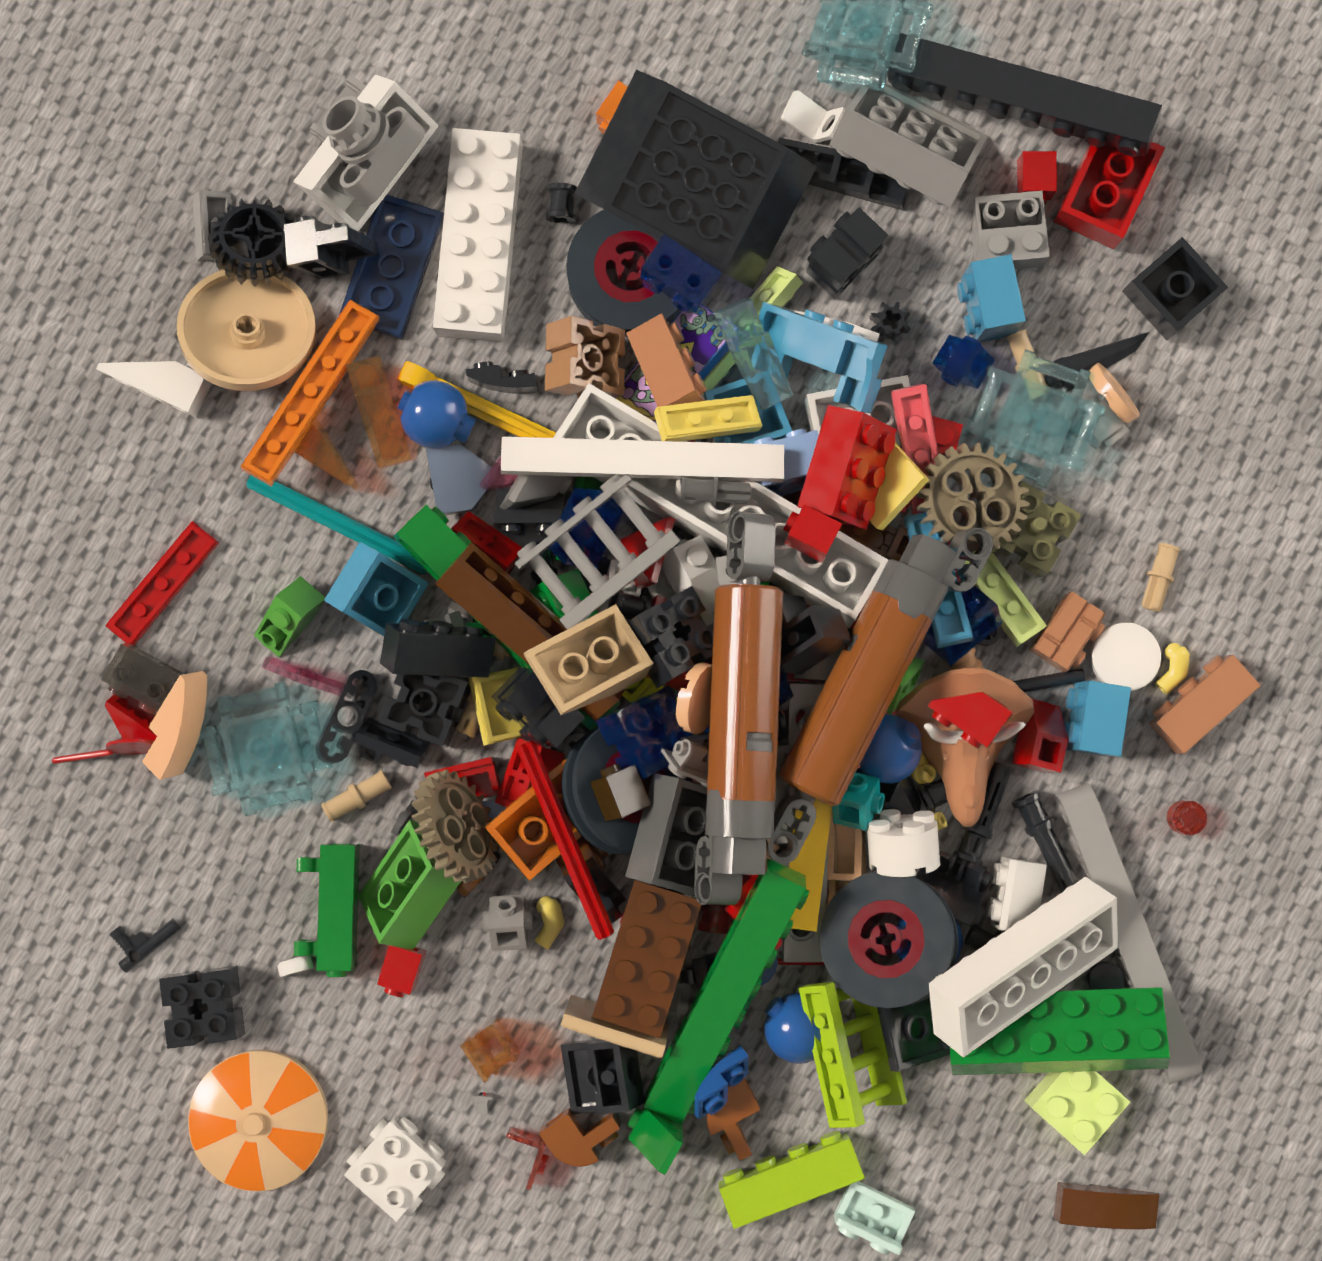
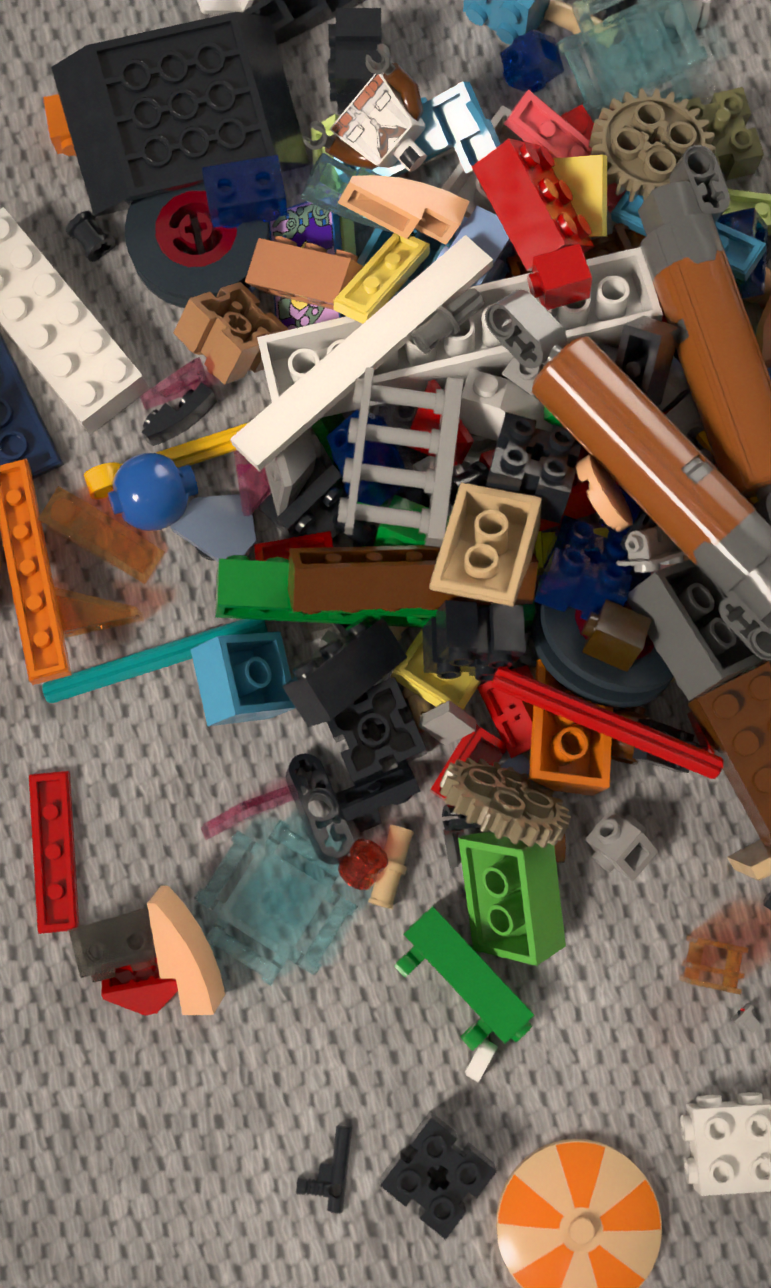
camera: 45 degrees left, 5 degrees down
(119, 746) = (150, 1022): red piece -> none
(289, 615) = (188, 773): bright green slope -> none
(337, 778) = (363, 864): none -> clear red wheel
(401, 970) = (573, 974): red brick -> none
(473, 742) = (447, 723): none -> light grey tile
(518, 358) = (176, 385): none -> clear pink tile
(552, 919) = (654, 810): light yellow arm -> none
(768, 388) = (405, 205): none -> light nougat slope
(800, 316) = (379, 122): none -> torso
(892, 313) = (439, 78): black gear -> none

